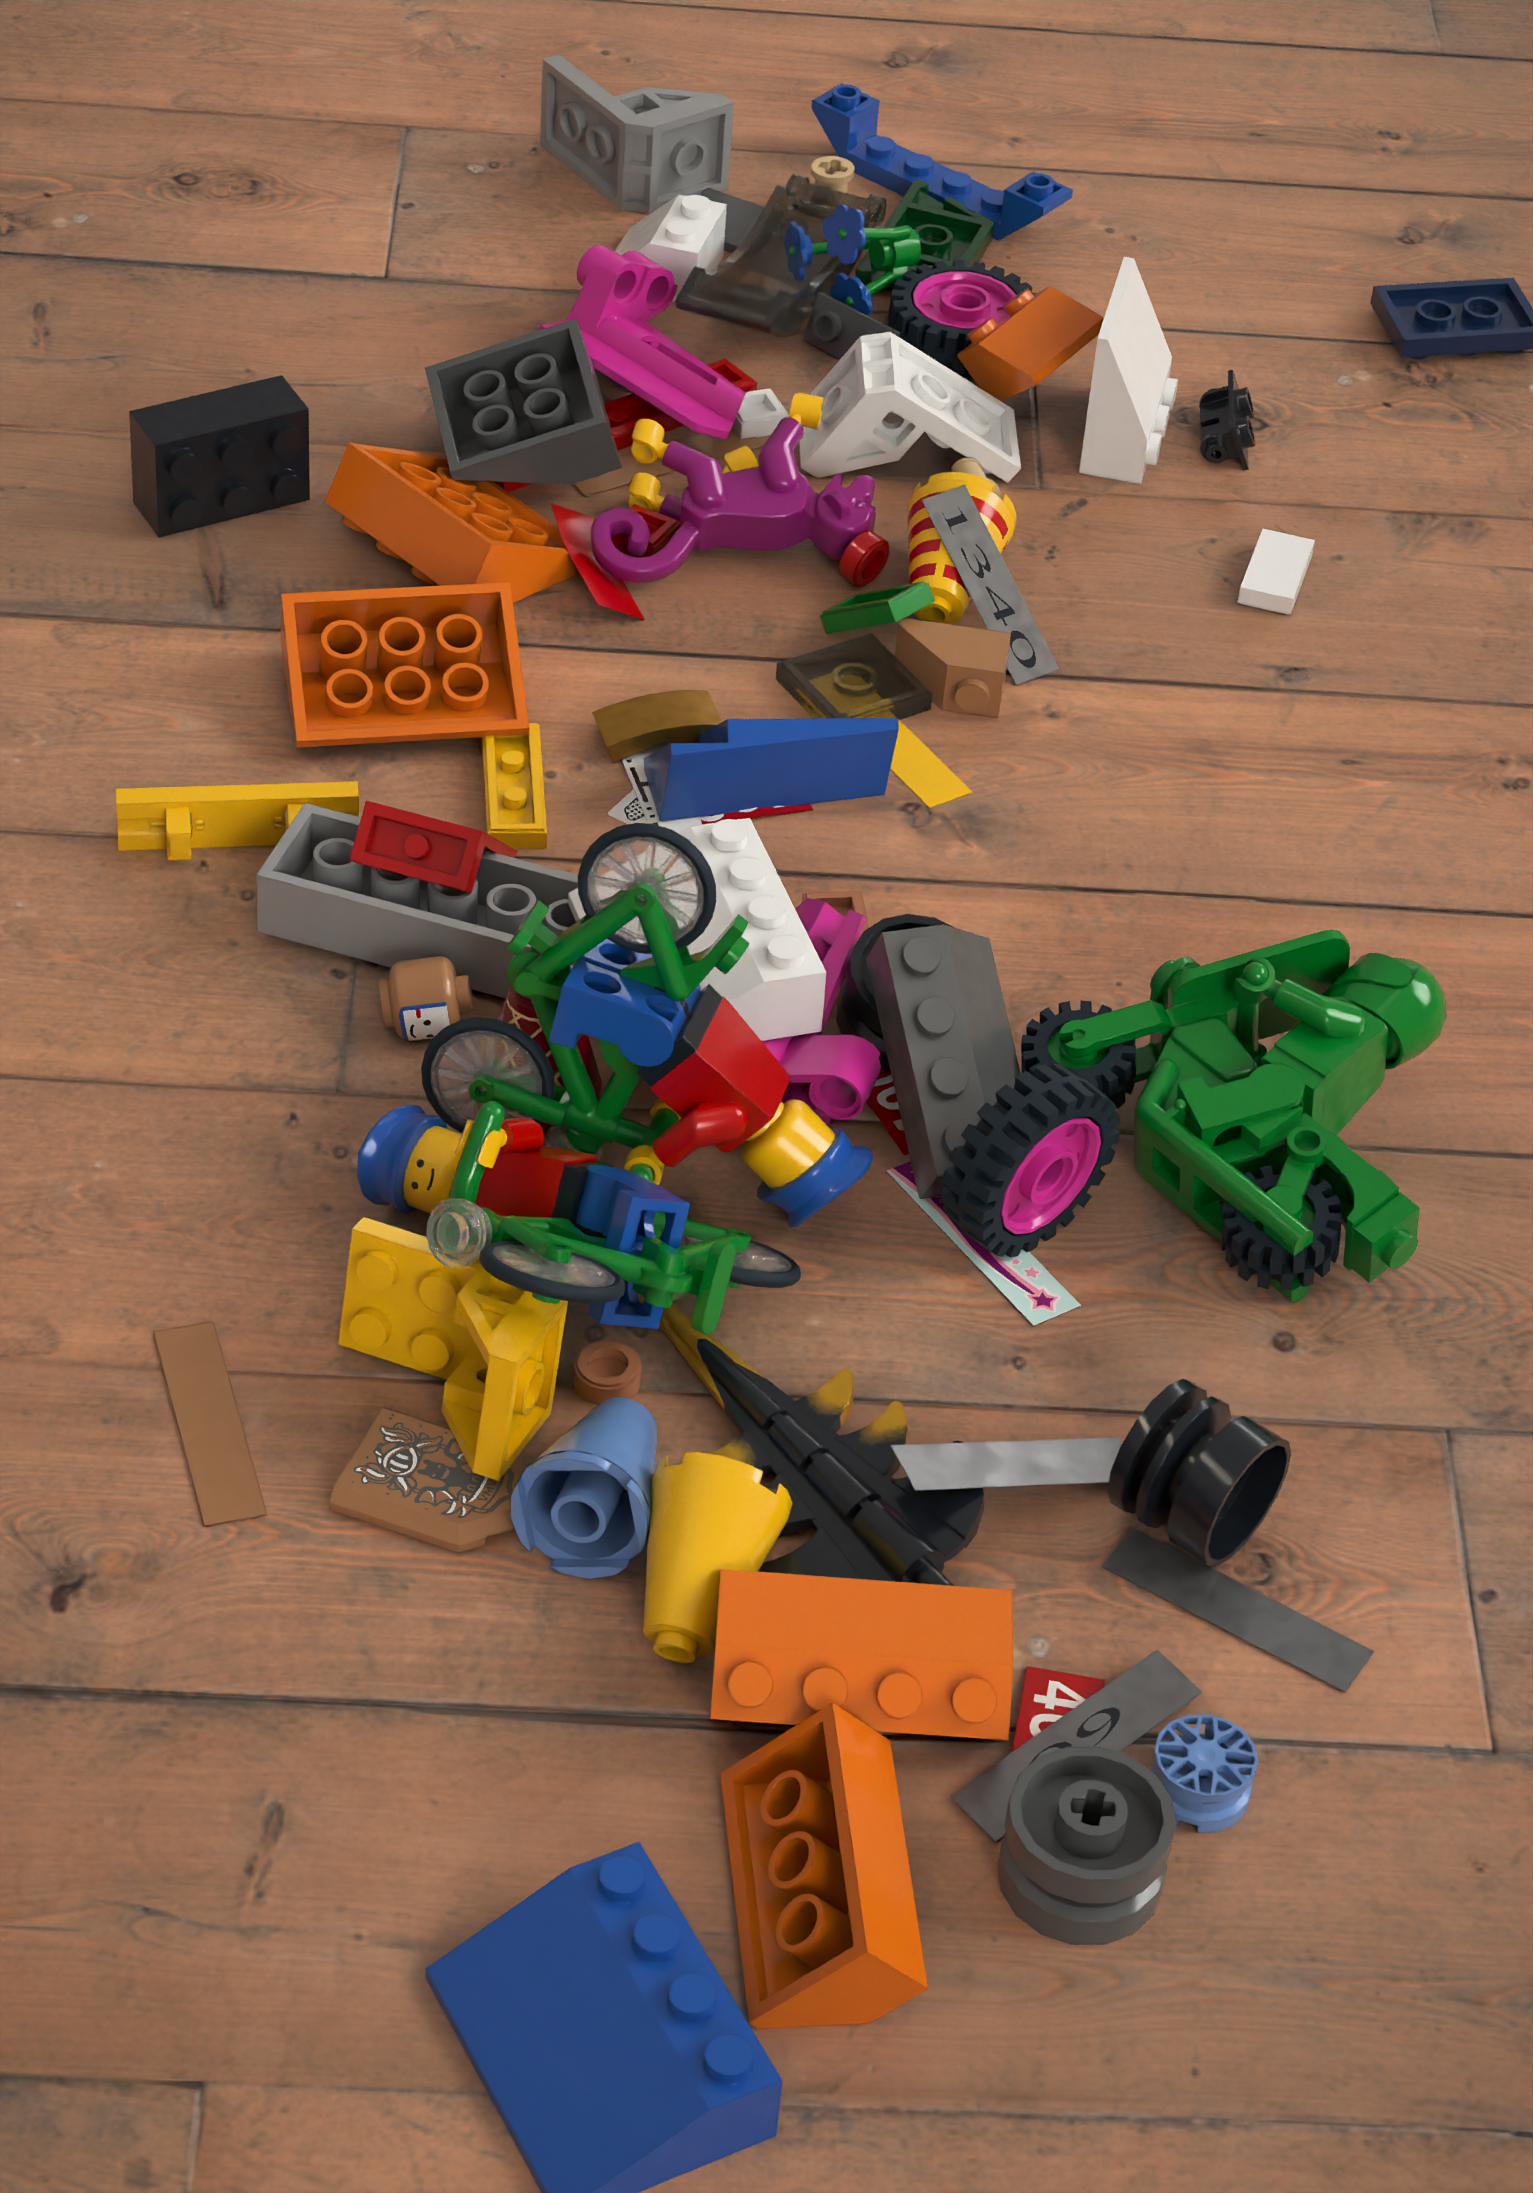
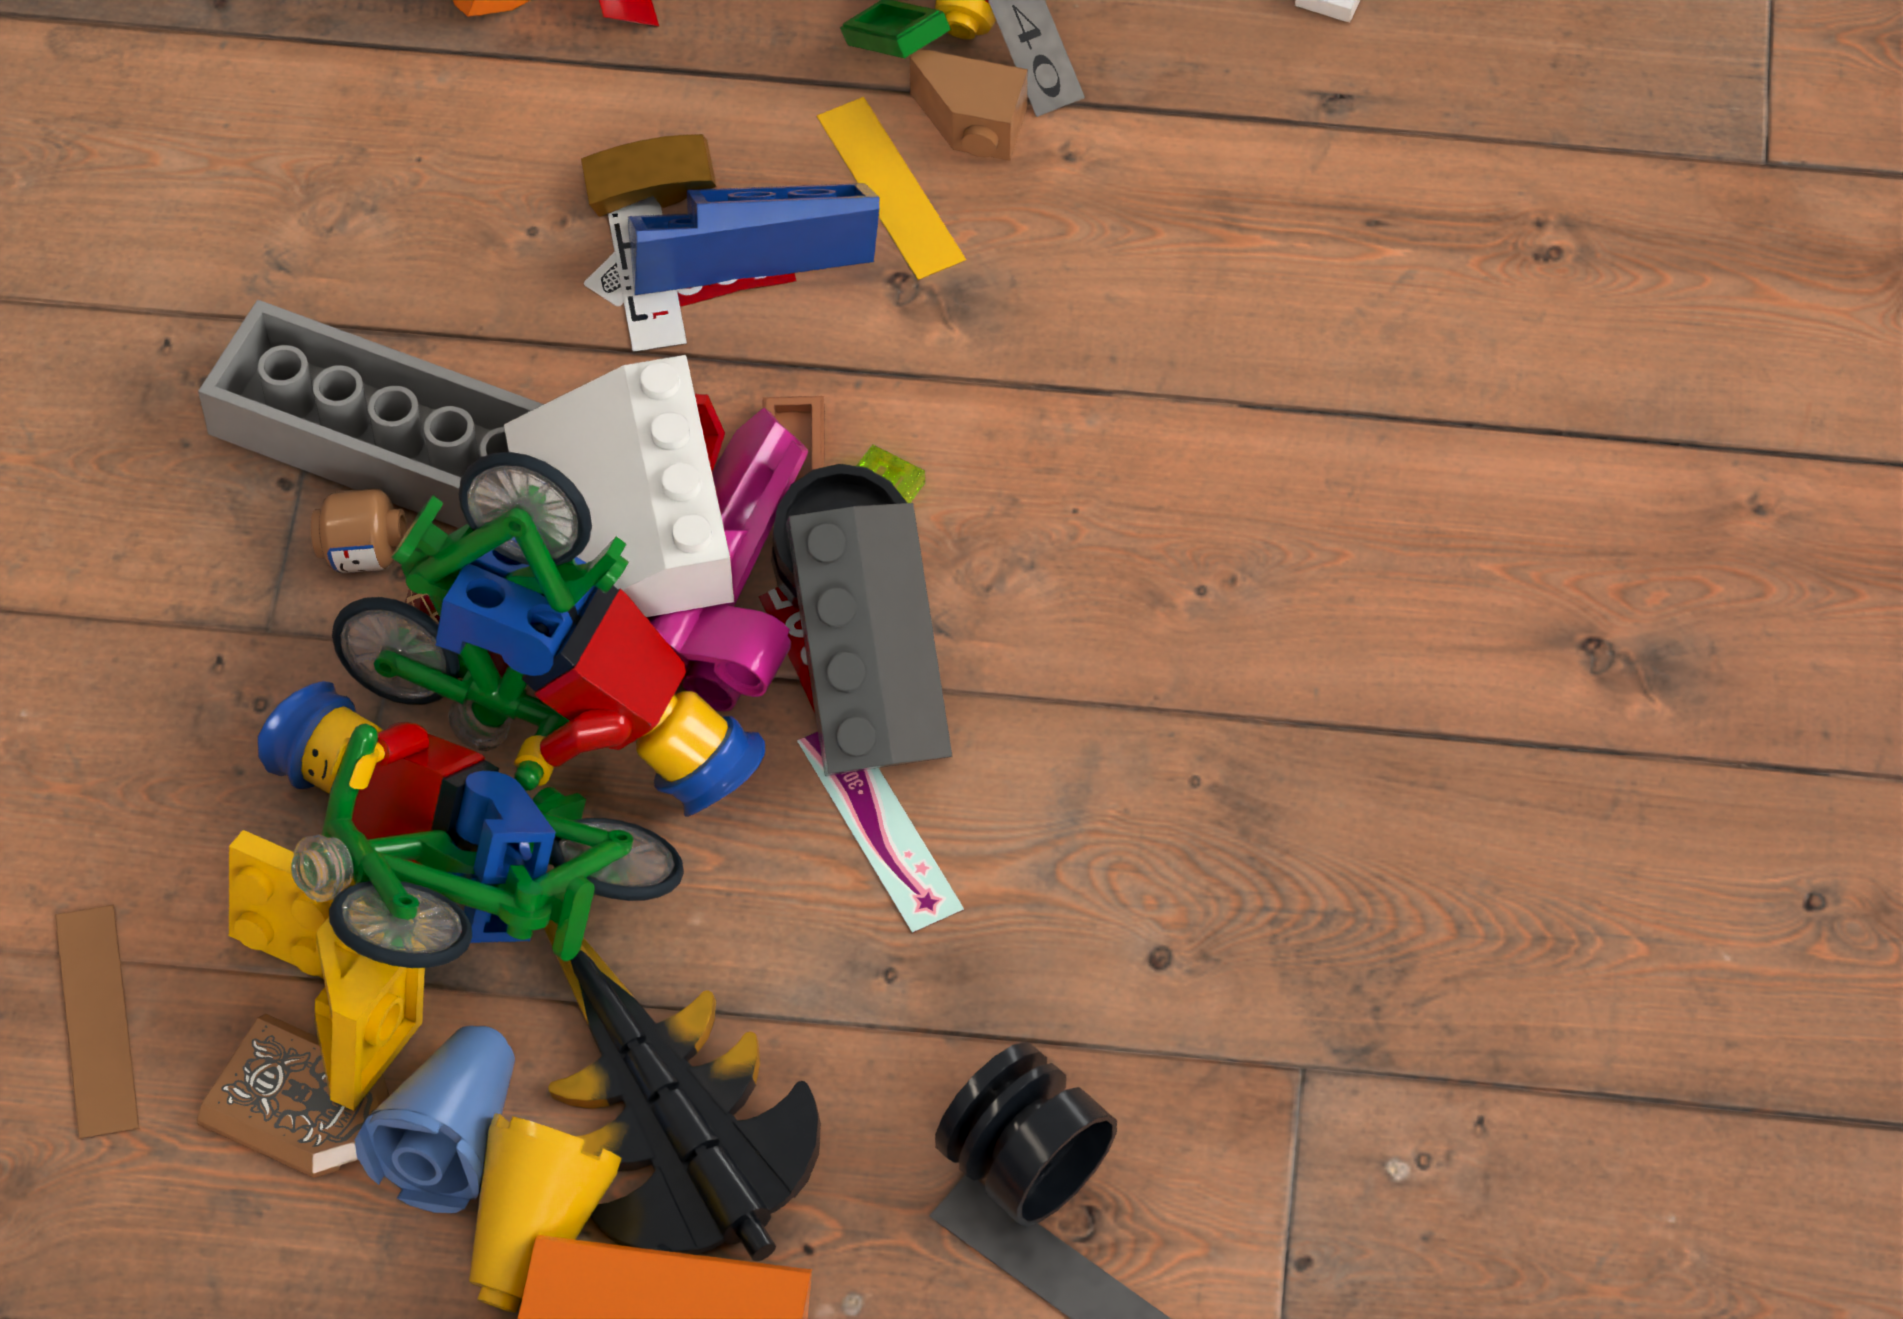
camera: 10 degrees right, 15 degrees up
(220, 814) = (195, 293): yellow hinge -> none
(402, 664) = (388, 106): orange slope -> none
(422, 847) = (372, 360): red panel -> none
(515, 789) = (489, 250): yellow tile -> none
(606, 1371) = (482, 979): nougat tile -> none
(854, 682) = (862, 121): clear smoke tile -> none
(1008, 1463) = (845, 1107): flat silver sticker -> none
(1030, 1160) = (919, 764): black wheel -> none
(1256, 1122) = (1135, 721): green piece -> none

